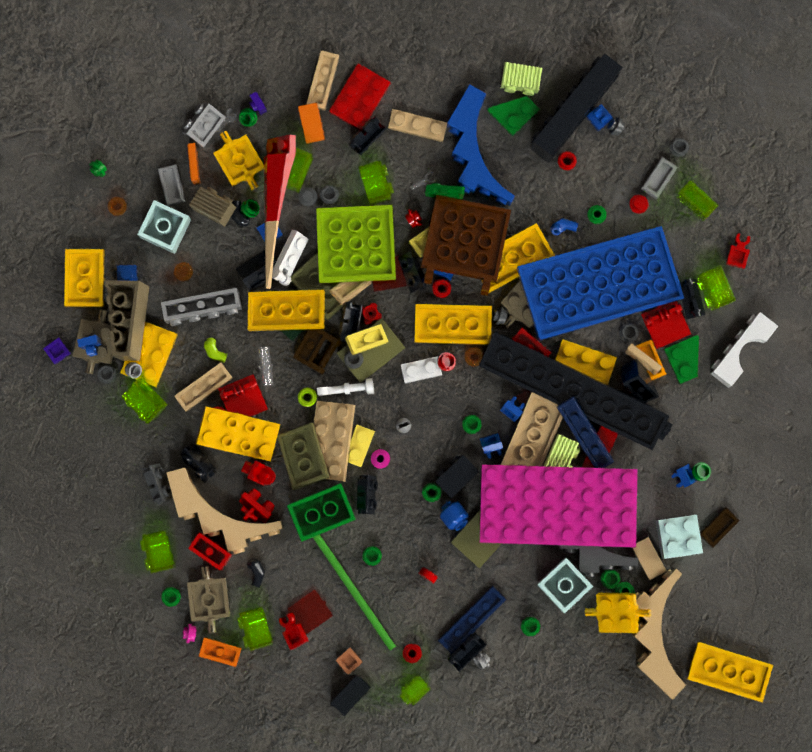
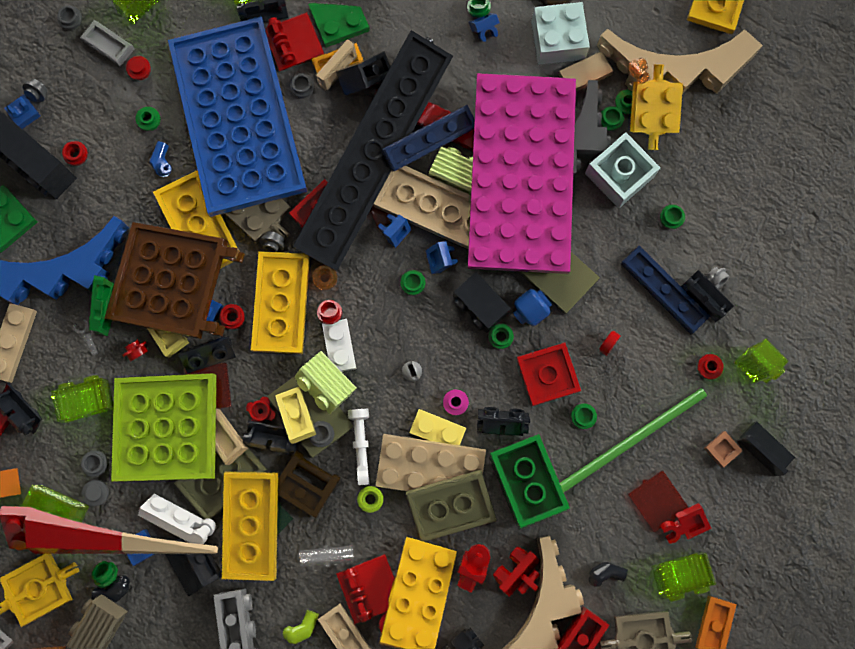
camera: 90 degrees left, 5 degrees down
(391, 360) = (324, 382): none -> yellowish green brick
(403, 528) = (548, 374): none -> red plate
(586, 360) = (334, 137): yellow plate -> none
(644, 595) = (638, 70): none -> clear orange arm

